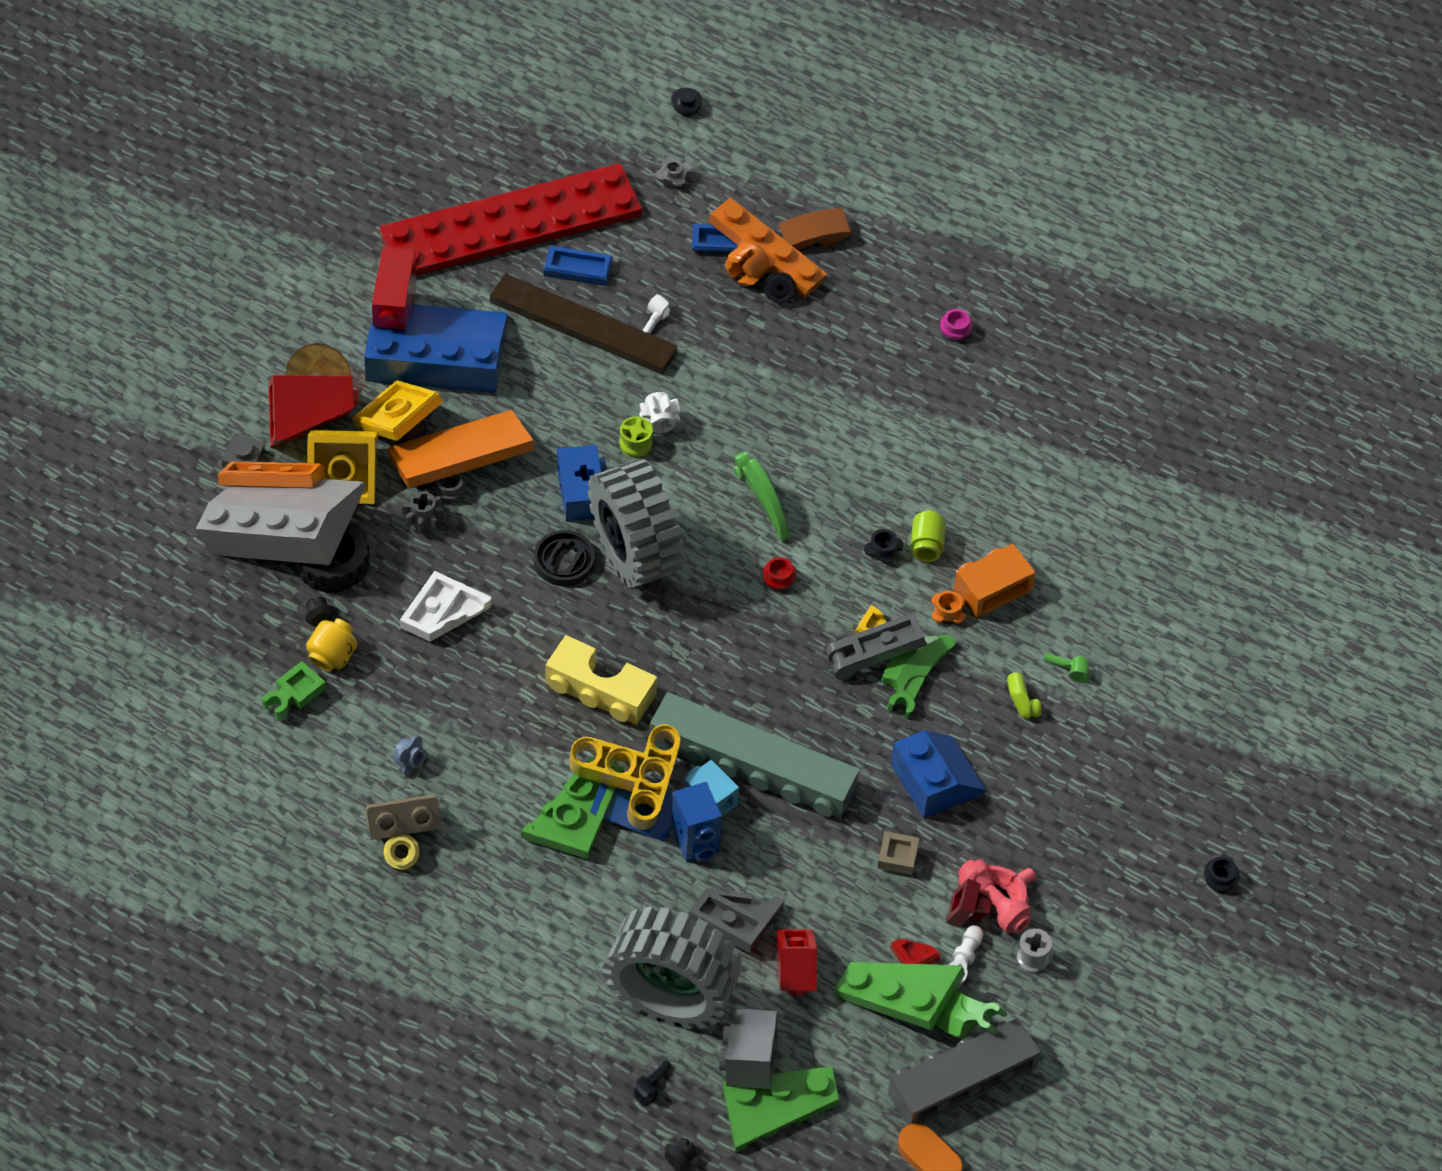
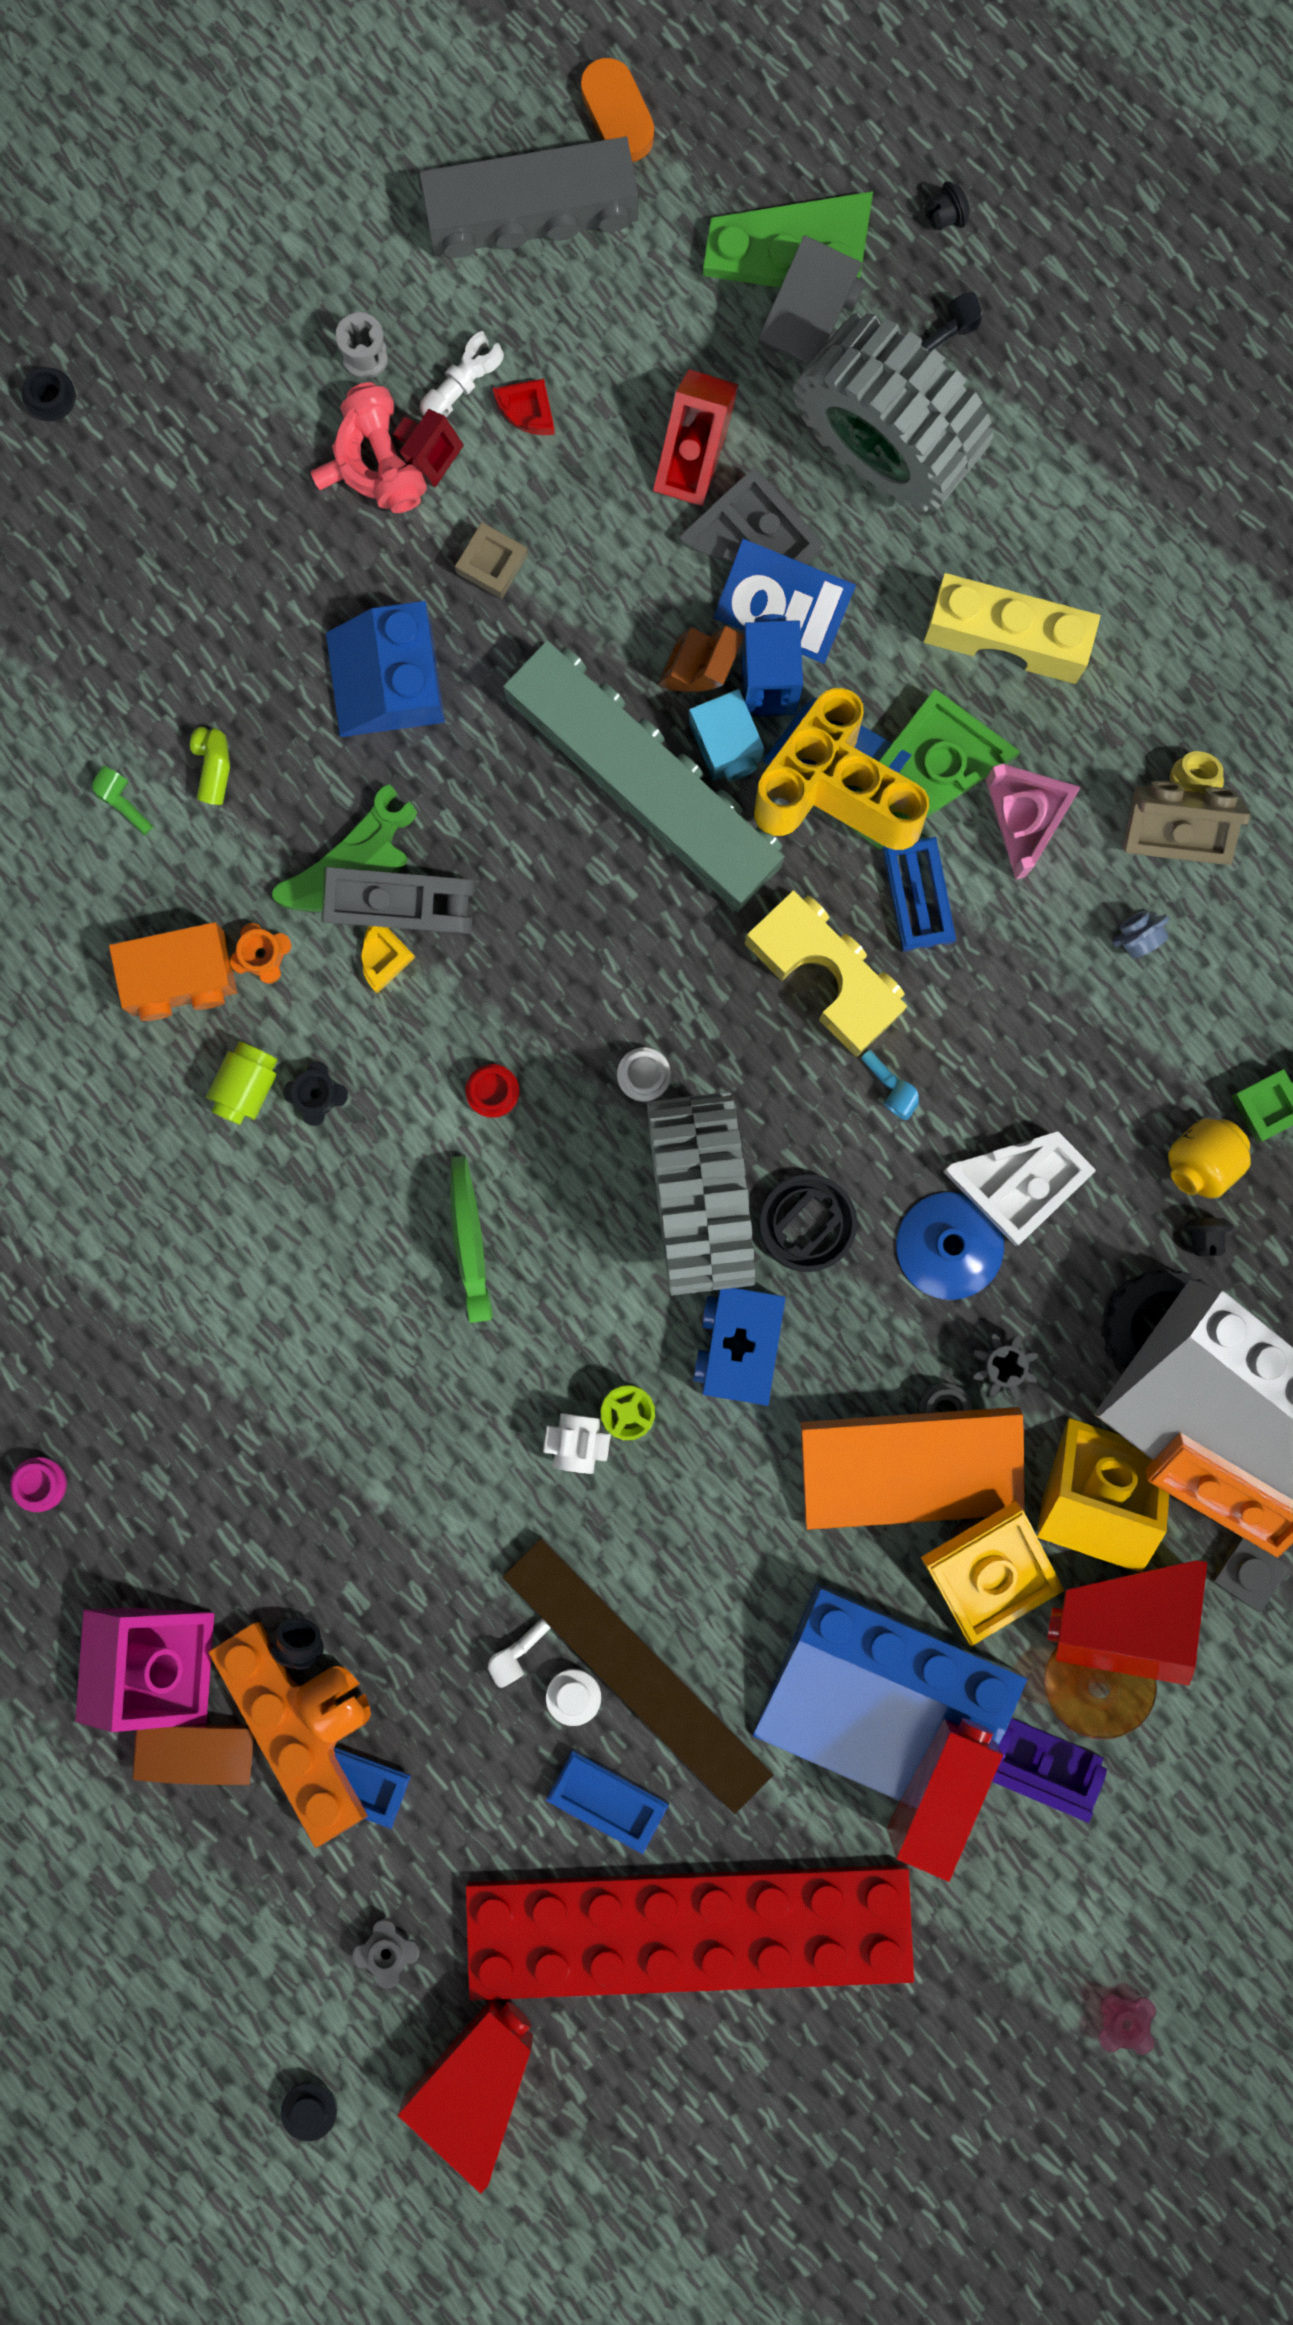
camera: 160 degrees left, 30 degrees up
(257, 243) = (1115, 2012): none -> clear pink plate
(338, 328) = (1050, 1770): none -> dark purple hinge
(486, 577) = (922, 1251): none -> blue dish
(501, 798) = (1027, 812): none -> bright pink slope
(530, 635) = (904, 1096): none -> dark azure hand
(542, 722) = (927, 938): none -> blue tile
(571, 892) = (1045, 634): none -> light yellow arch
(604, 124) = (471, 2091): none -> red slope
(615, 304) = (573, 1697): none -> white plate
(691, 605) = (643, 1074): none -> white plate
(702, 880) = (776, 584): none -> blue sticker
(743, 819) = (700, 660): none -> dark orange slope
(858, 255) = (144, 1668): none -> dark pink slope
(901, 990) = (569, 333): bright green wing -> none
(964, 1013) = (510, 287): bright green piece -> none

